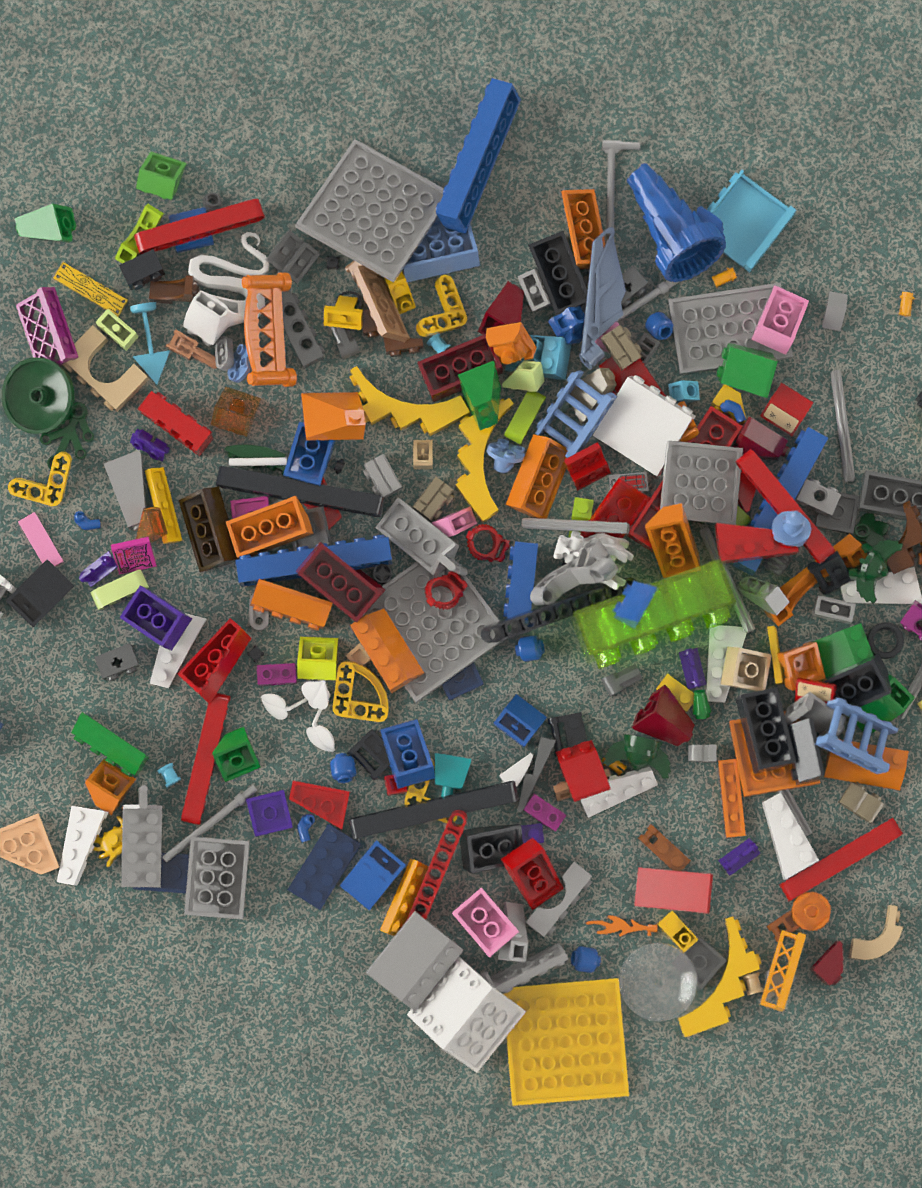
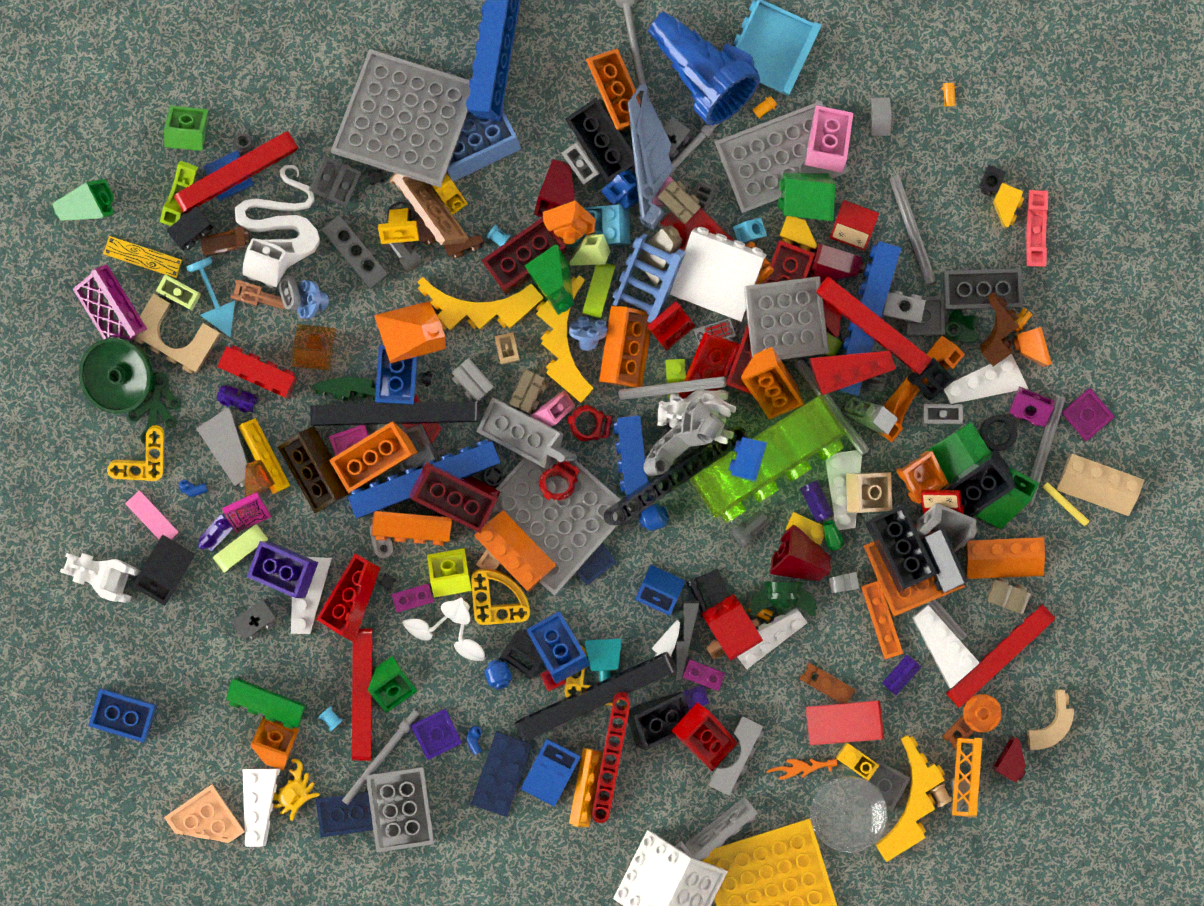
camera: 15 degrees left, 5 degrees up
(141, 843) = (319, 791): light grey hinge -> none
(257, 461) = (347, 393): white bar -> none
(271, 288) = (321, 220): orange piece -> none
(322, 801) = (484, 710): red wing -> none
(414, 961) = (609, 847): light grey slope -> none
(450, 311) = (503, 201): yellow beam -> none
(485, 922) = (670, 794): bright pink slope -> none
(516, 948) = (699, 799): light grey slope -> none
(585, 959) = (774, 807): blue head -> none
(659, 326) = (711, 170): blue head -> none
(735, 408) = (804, 237): blue arm -> none
(775, 648) = (893, 466): yellow tile -> none
(791, 528) = (884, 348): medium blue plate -> none
(845, 748) = (982, 550): medium blue fence -> none
(873, 567) = (972, 365): dark green helmet -> none

